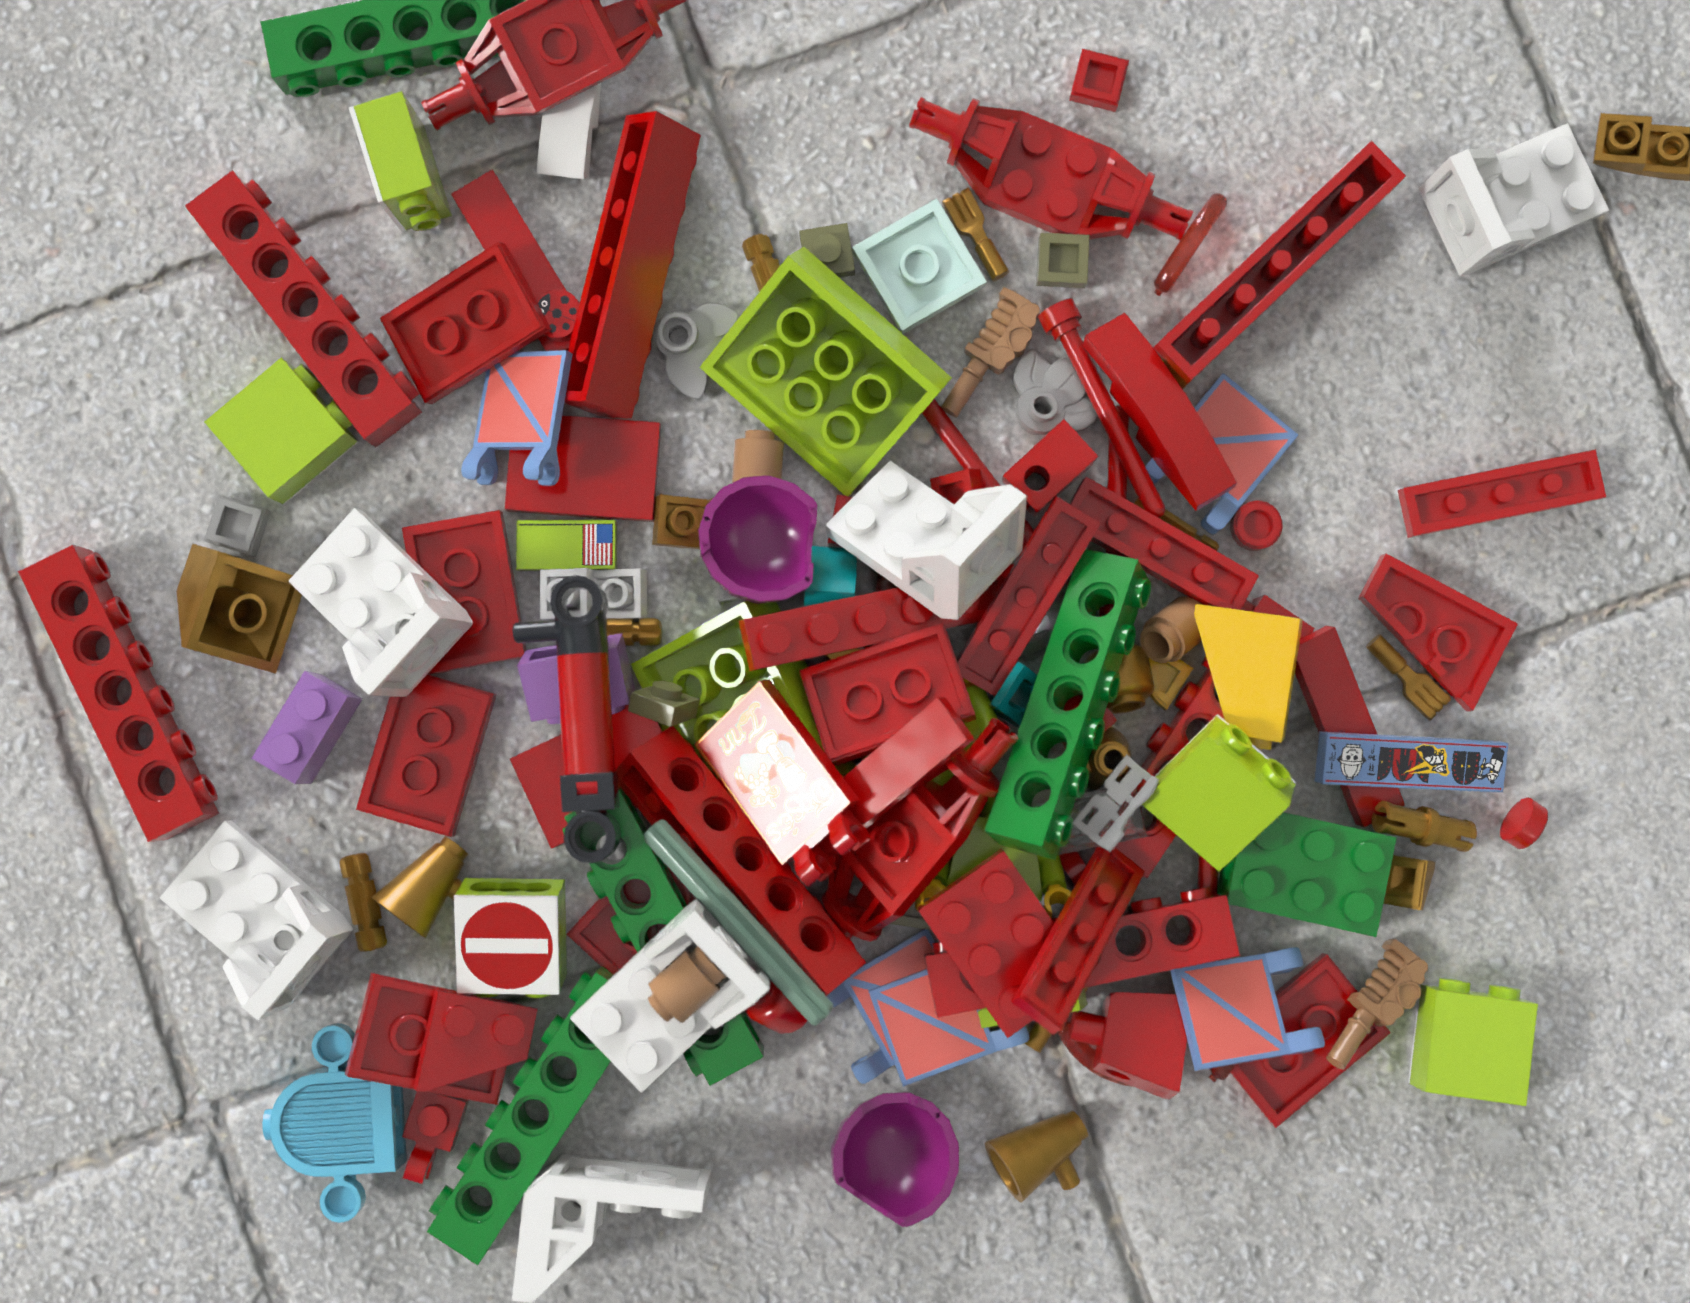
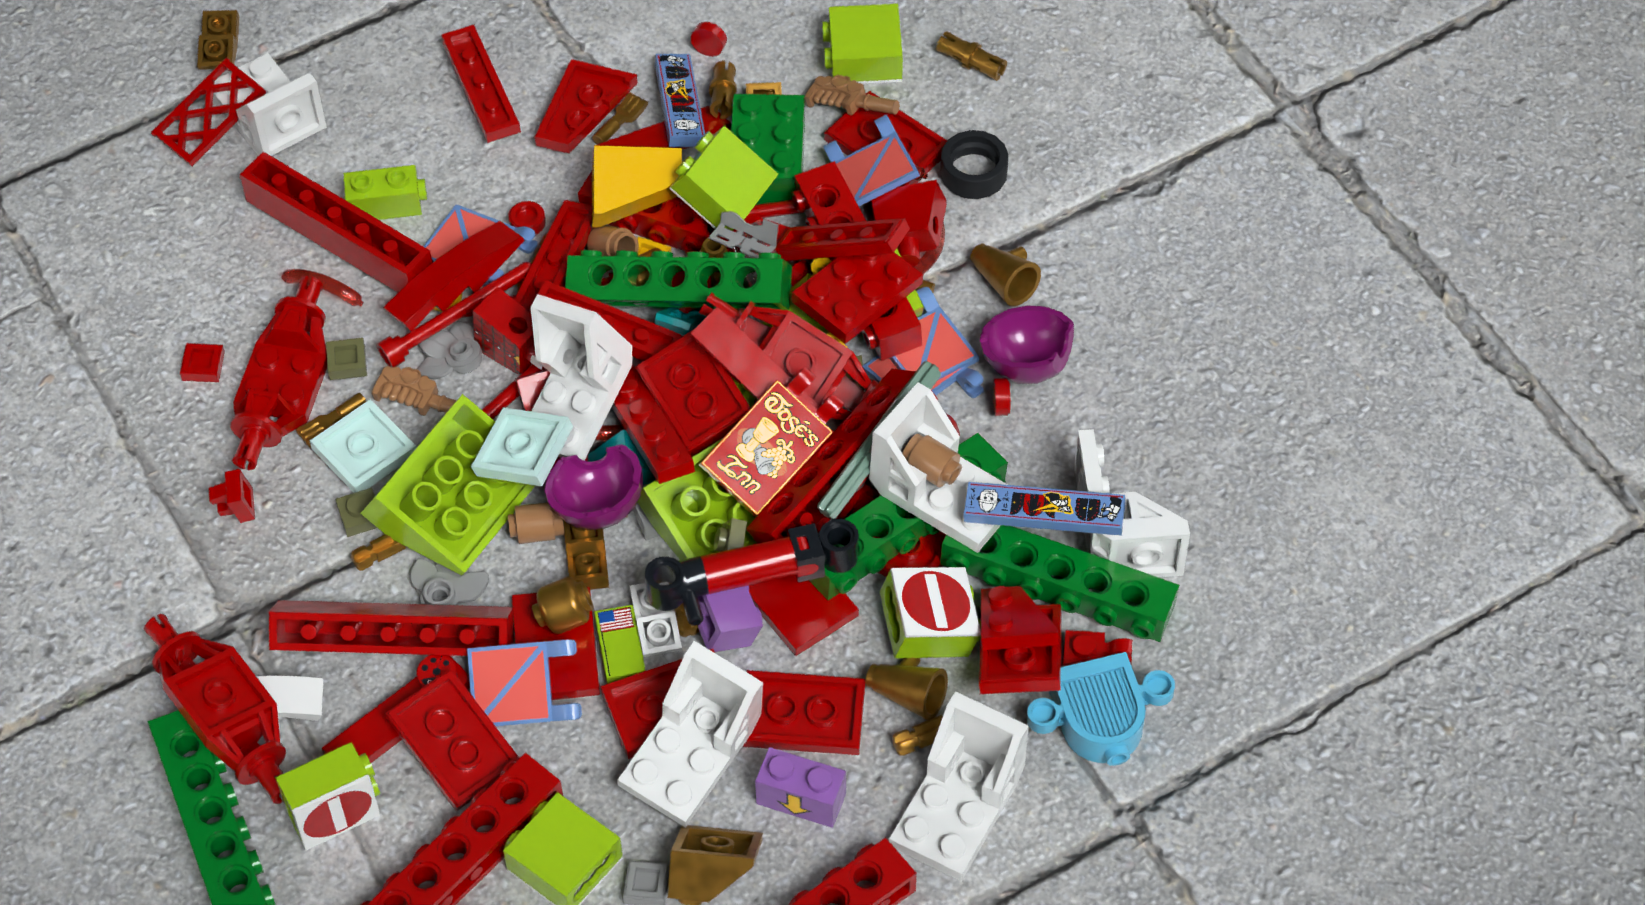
camera: 95 degrees left, 30 degrees down
(584, 1118) = (1044, 508): none -> tile
(612, 478) = (563, 605): none -> pearl gold head
(830, 1101) = (1001, 397): none -> red tile
(846, 457) = (522, 446): none -> light aqua plate
(872, 100) = (234, 496): none -> red tile
(1261, 1175) = (975, 143): none -> black tyre
(1326, 338) = (386, 191): none -> lime brick
(1430, 1192) = (971, 55): none -> pearl gold pin
(1523, 84) = (209, 135): none -> red window

